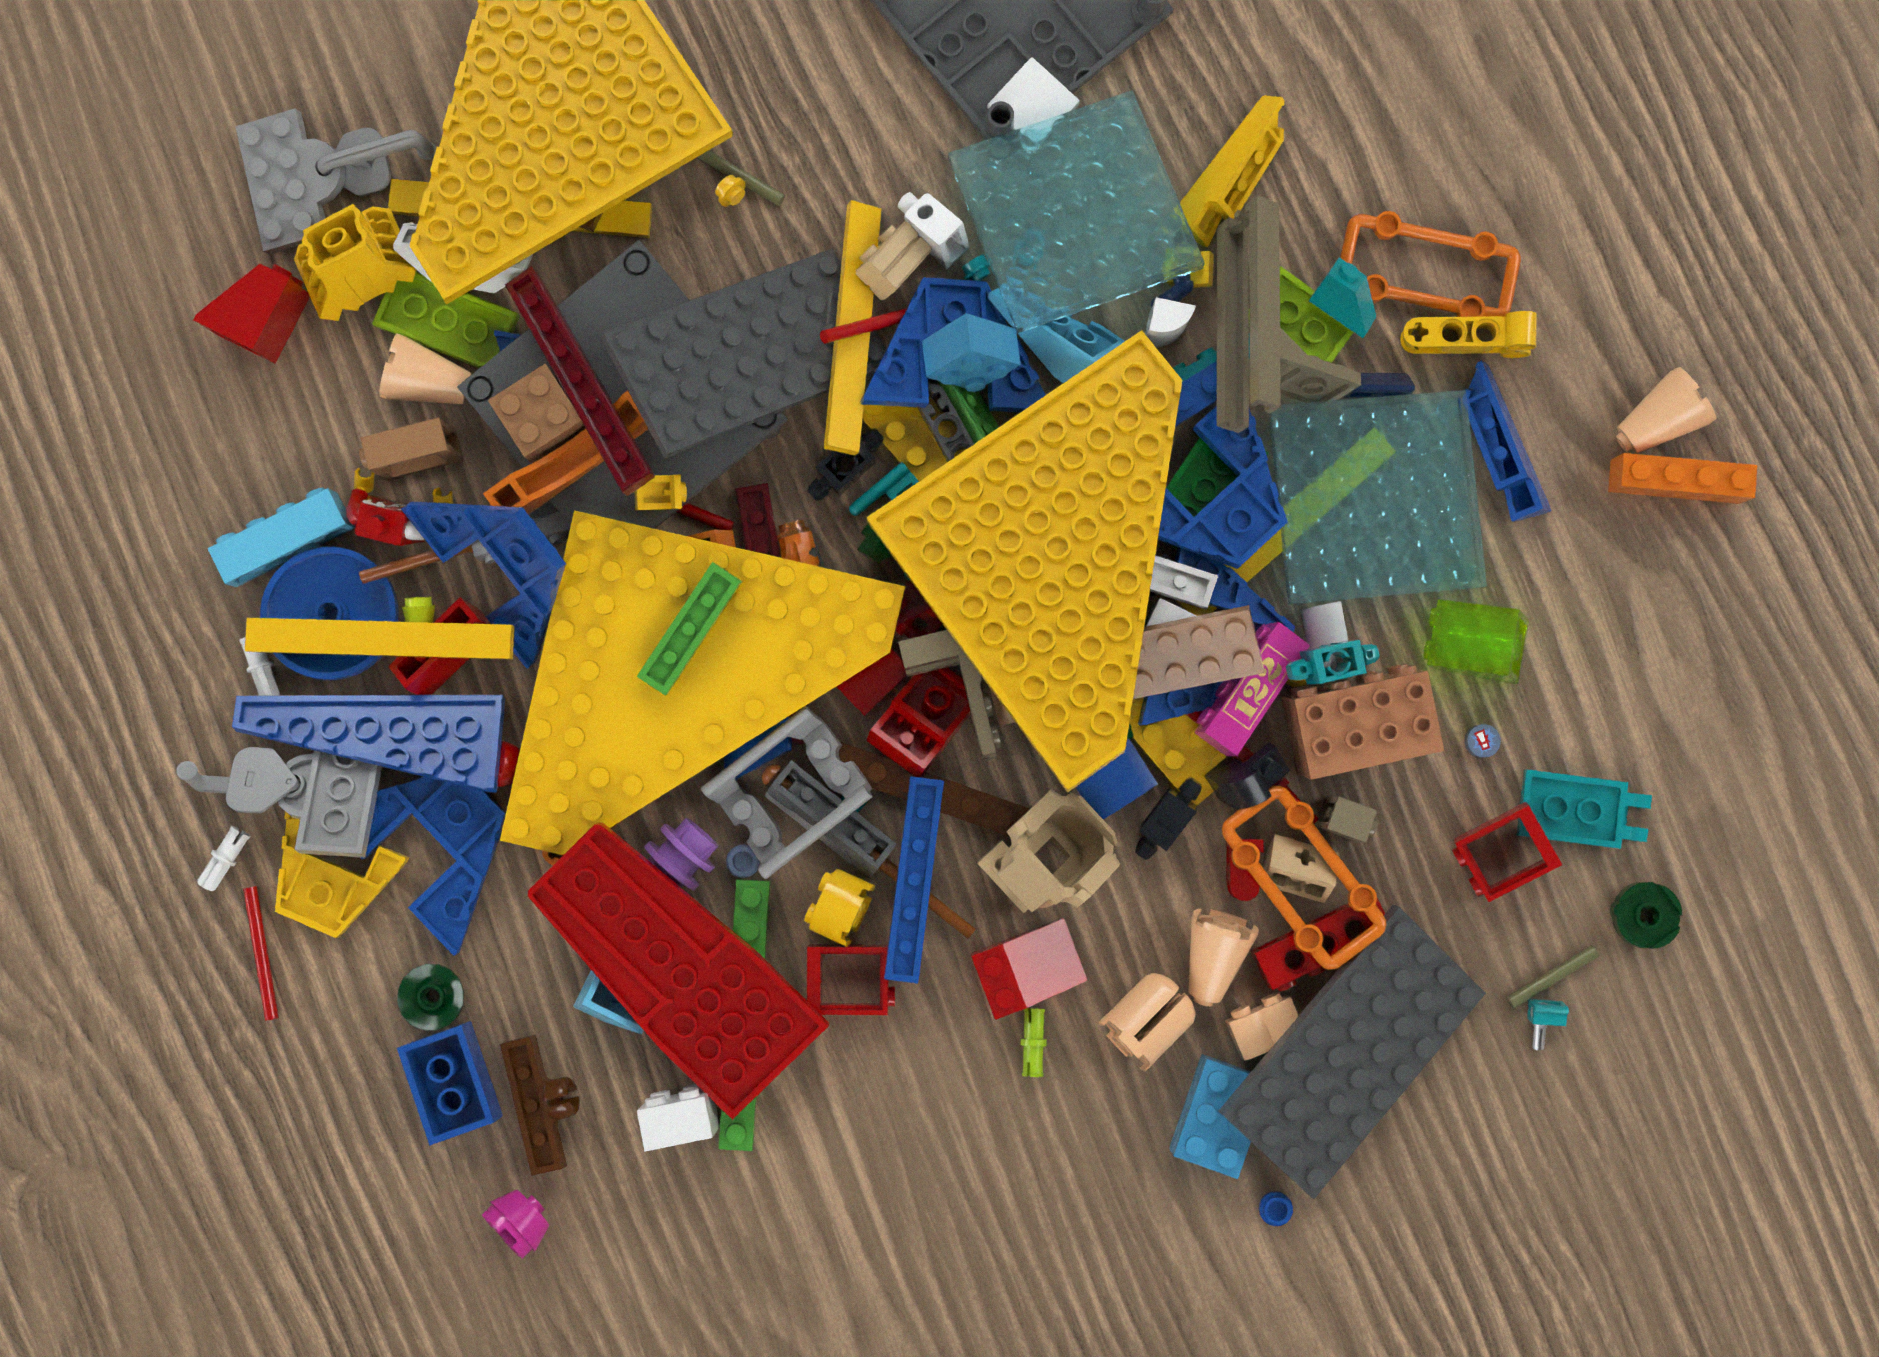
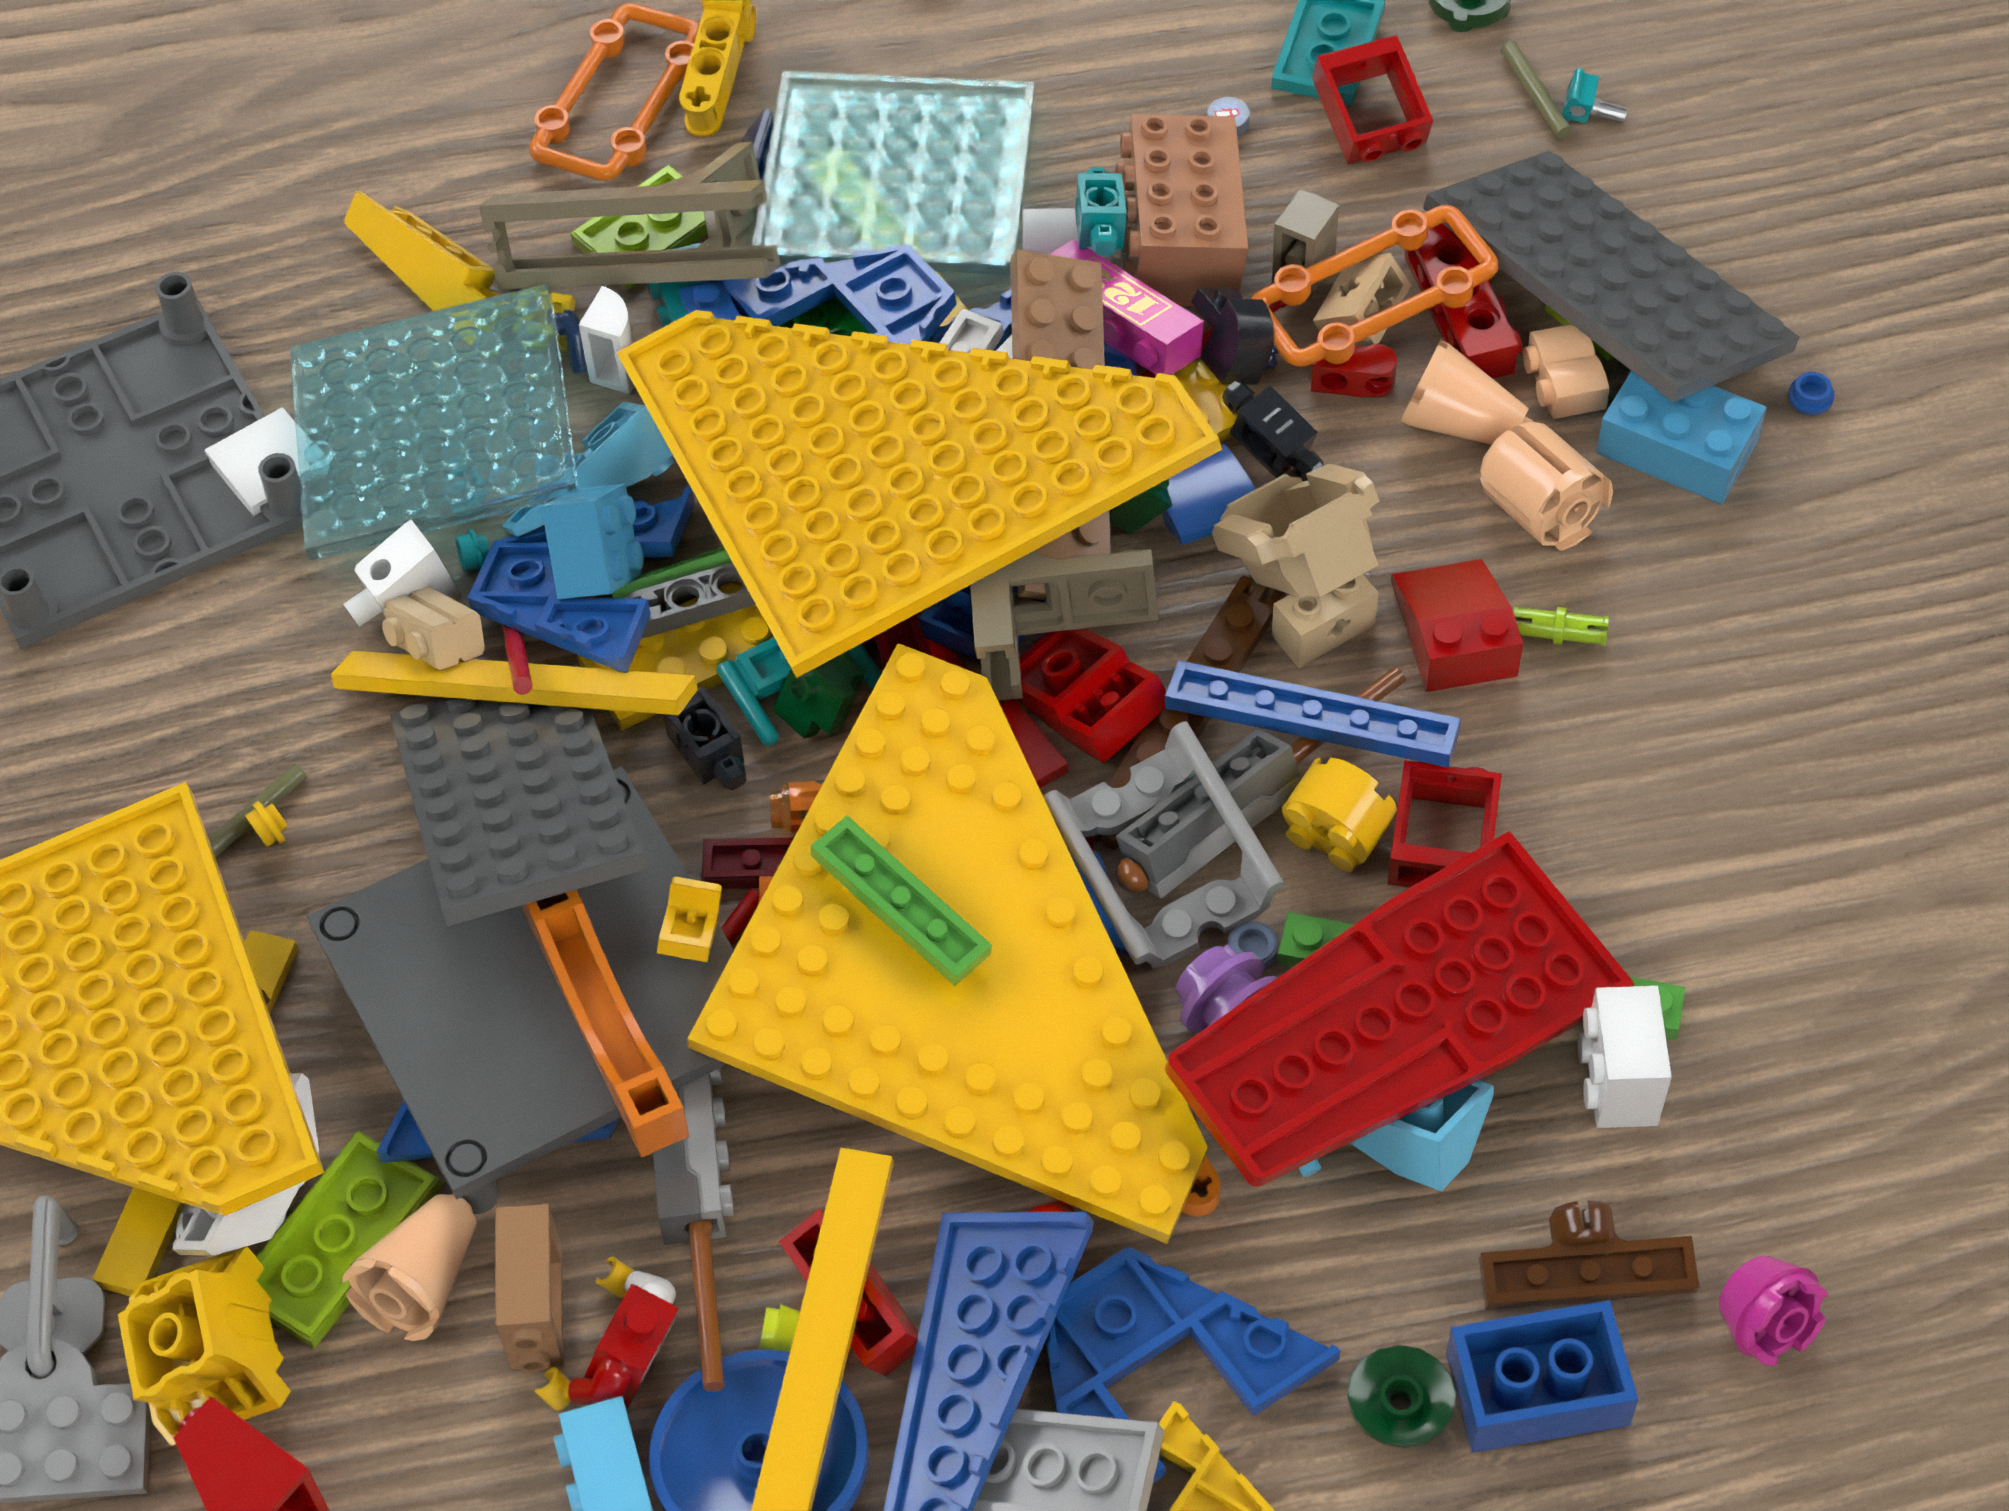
camera: 80 degrees left, 30 degrees down
(518, 550) = (715, 1099): blue wing -> none
(537, 413) = (530, 1062): medium nougat brick -> none
(580, 381) = (494, 992): dark red tile -> none
(1346, 297) = (630, 160): teal slope -> none
(1477, 640) = (1098, 91): clear neon green slope -> none
(1503, 447) = (863, 46): blue wedge -> none

